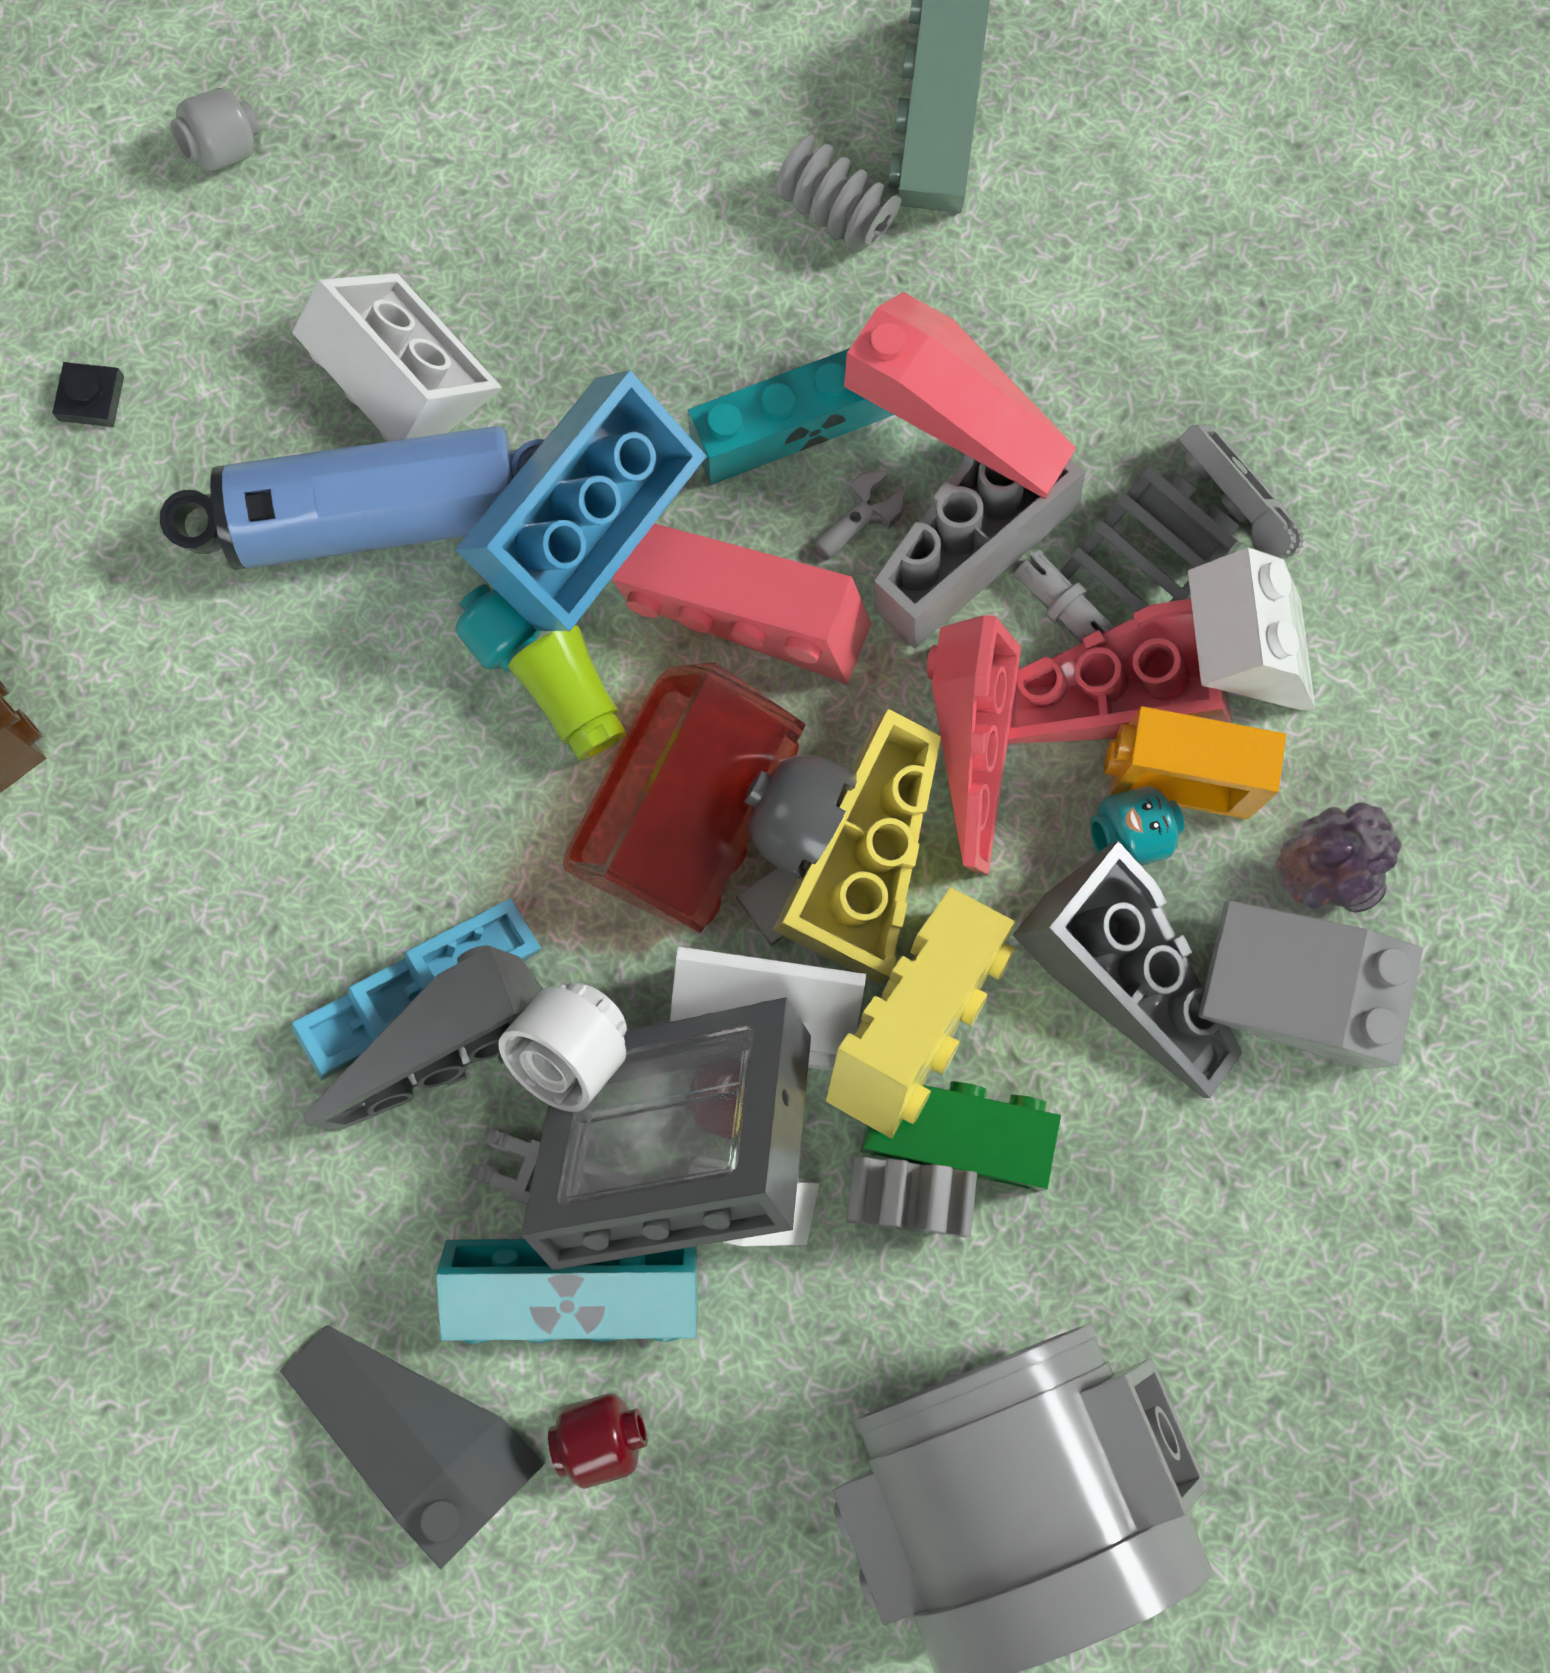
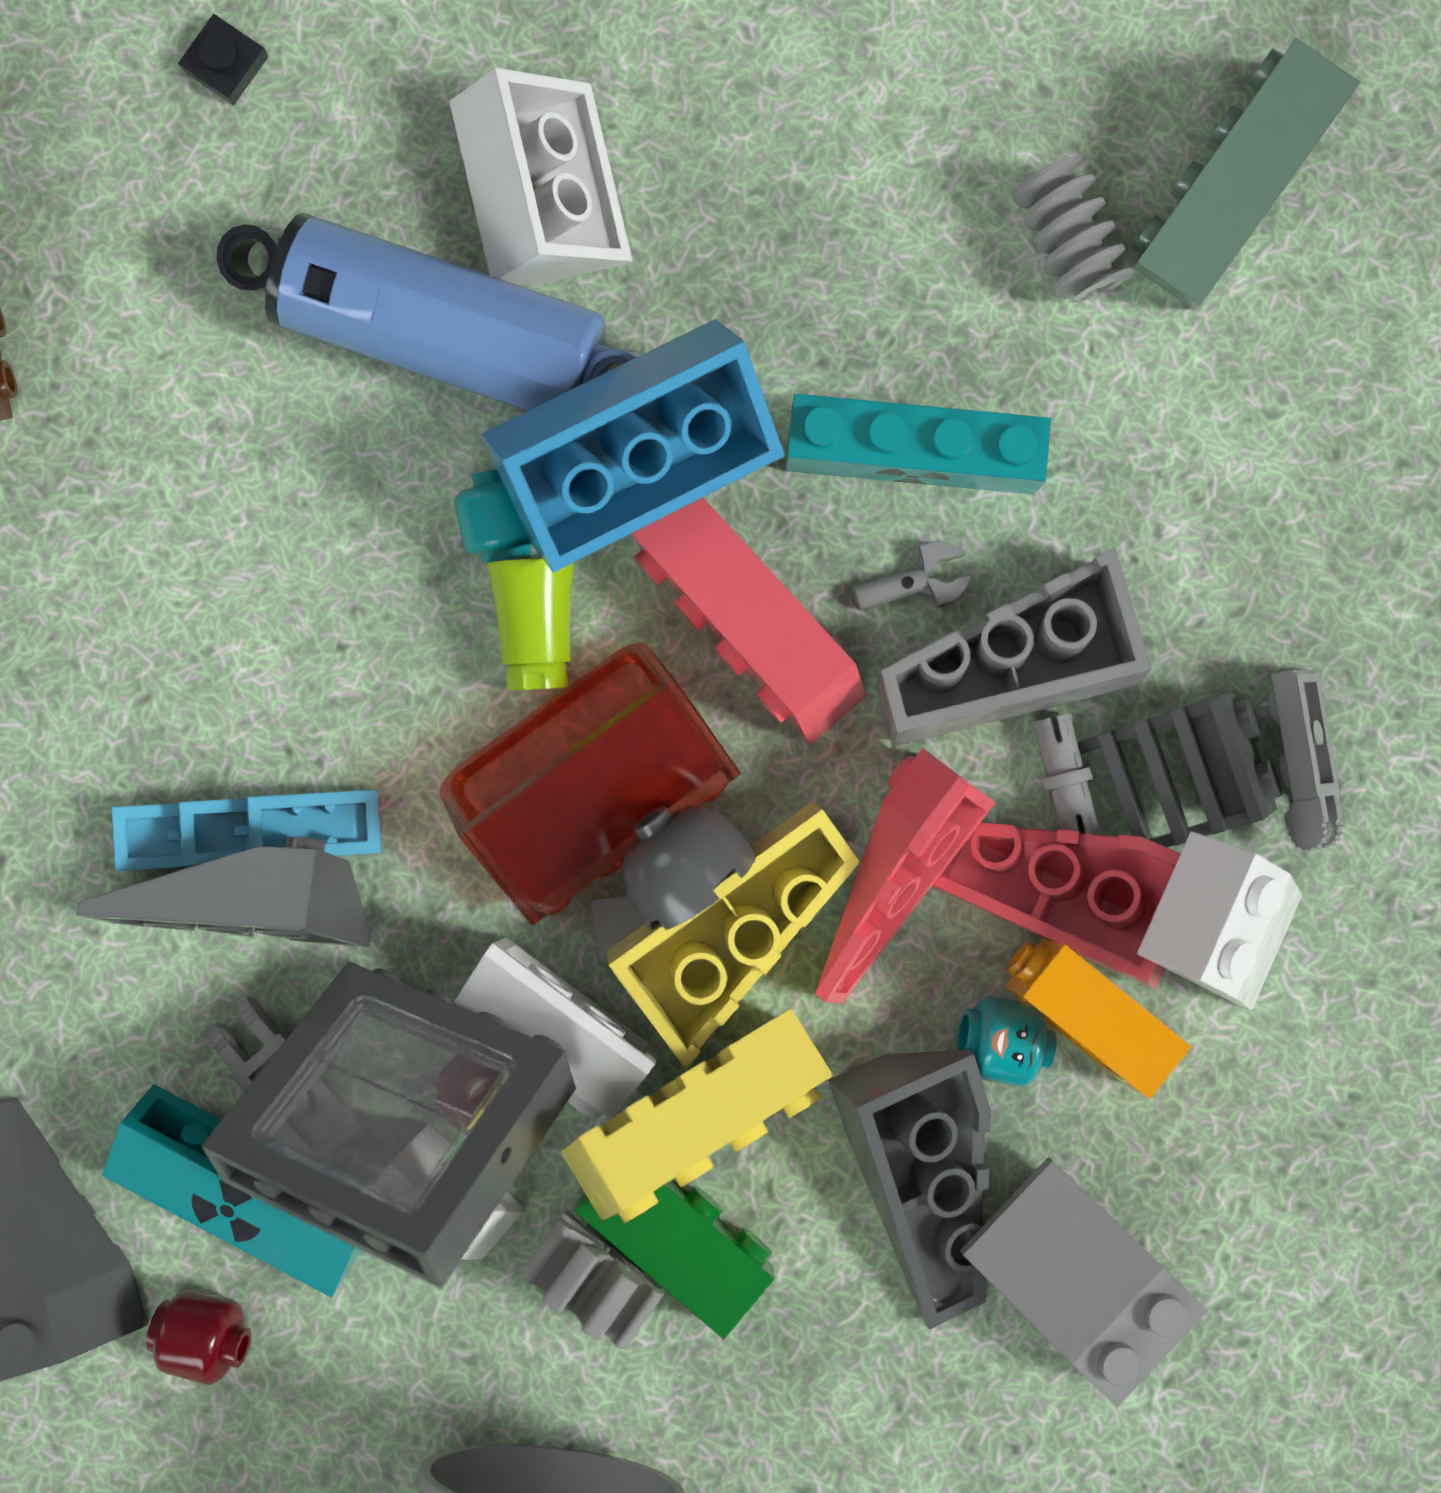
camera: 30 degrees right, 10 degrees up
(565, 1045) = (342, 980): white piece -> none
(947, 386) = (1063, 506): coral wedge -> none
(1340, 858) = (1182, 1176): clear purple plant -> none

